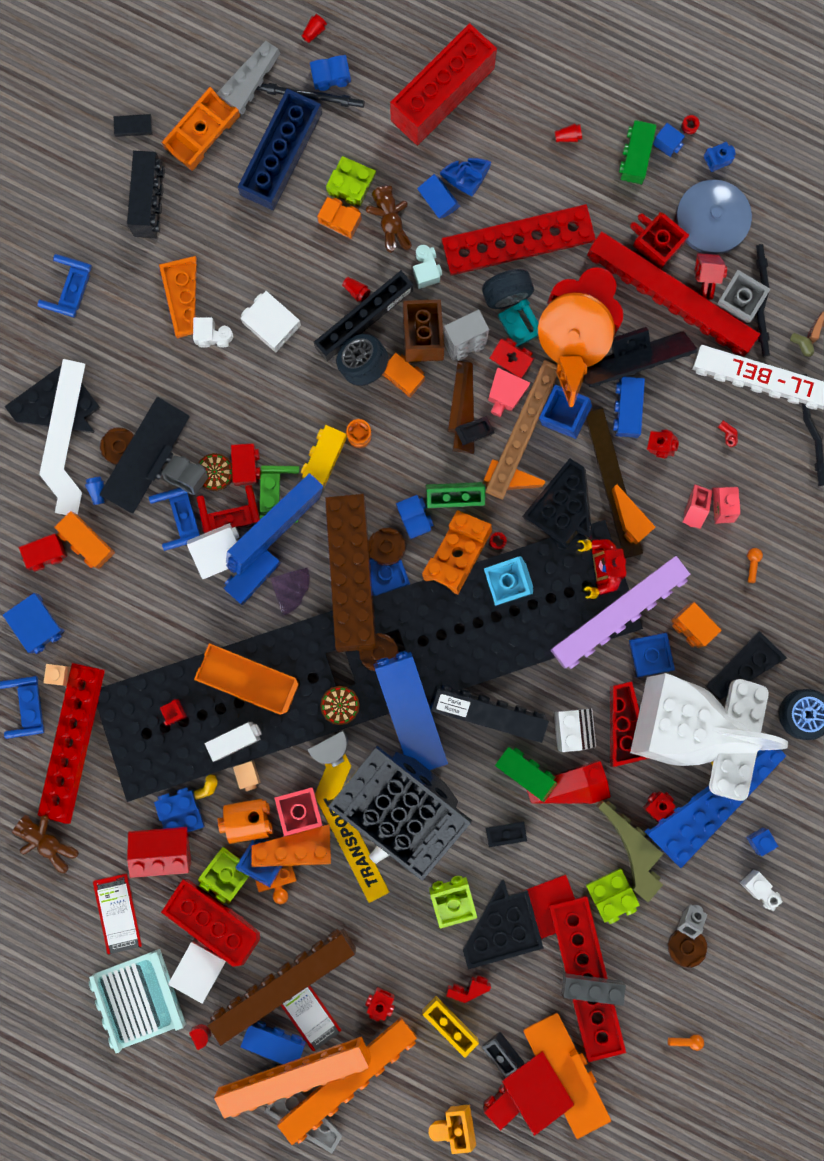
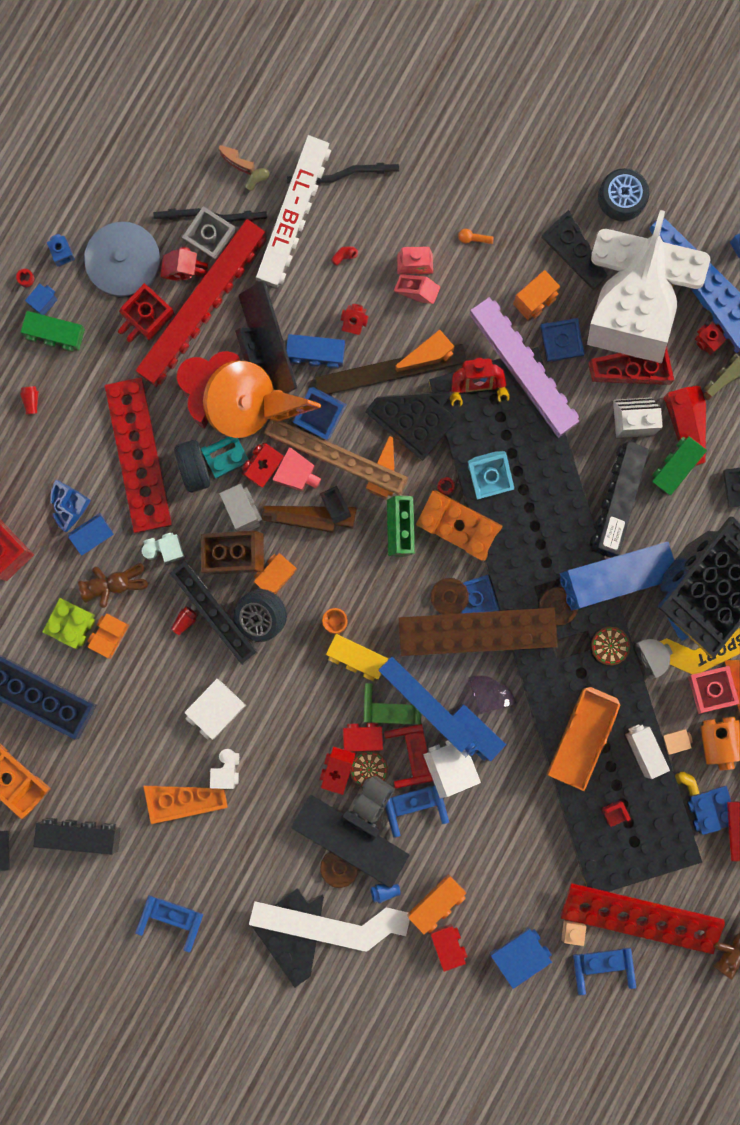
camera: 90 degrees left, 0 degrees up
(212, 439) = (337, 771): none -> red brick
(413, 516) = (420, 568): blue brick -> none

